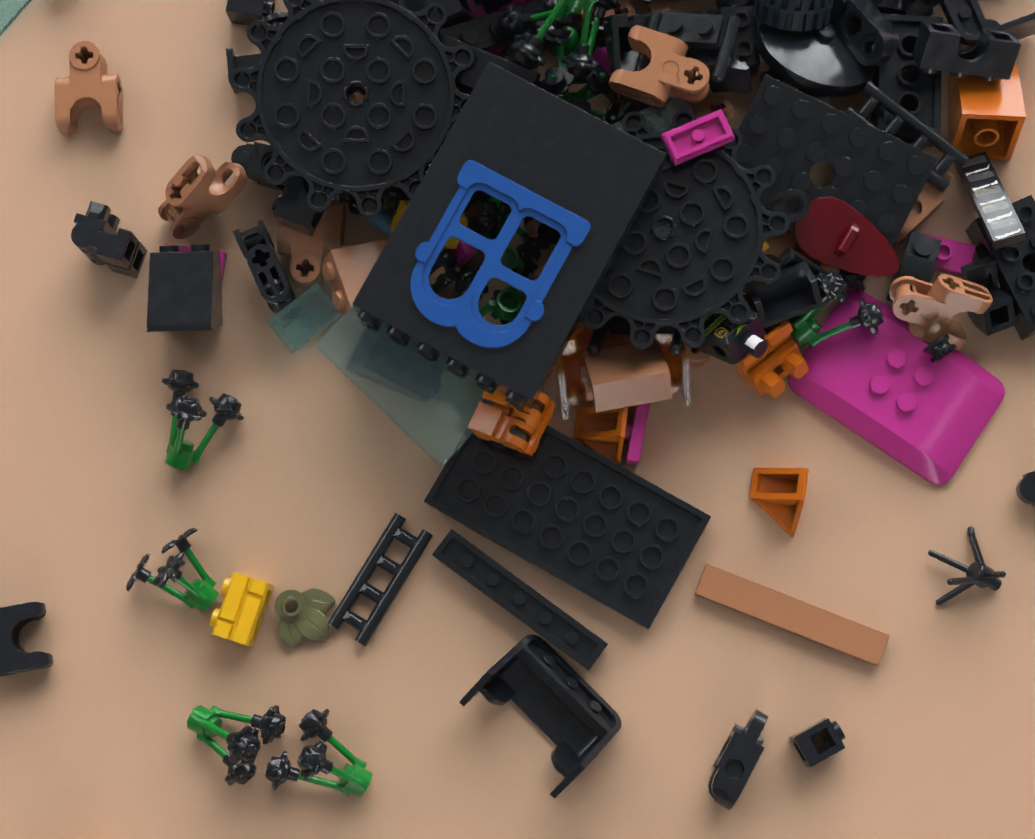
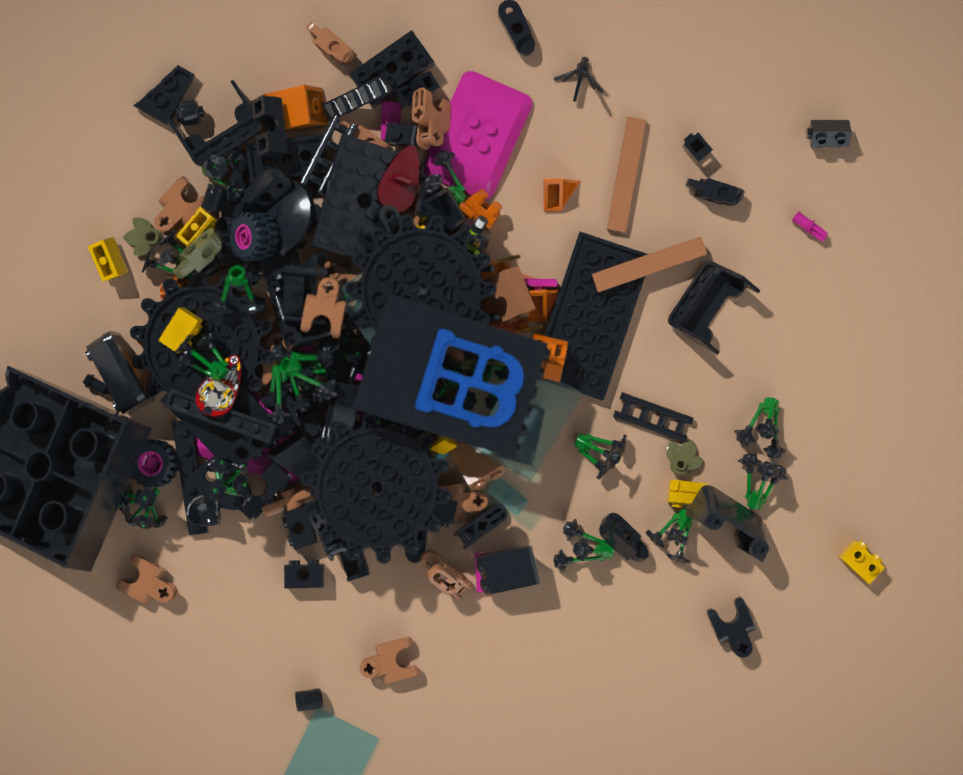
camera: 110 degrees left, 10 degrees up
(98, 240) = (484, 632): black hips -> none
(202, 648) = (714, 507): none -> black windscreen
(209, 473) = (623, 538): none -> black piece
(325, 486) = (585, 443): none -> plant
(520, 599) = (649, 333): black plate -> none
(635, 620) = (649, 264): none -> nougat tile
(698, 137) = (363, 278): dark pink plate -> none
(939, 348) = (455, 114): black bush -> none

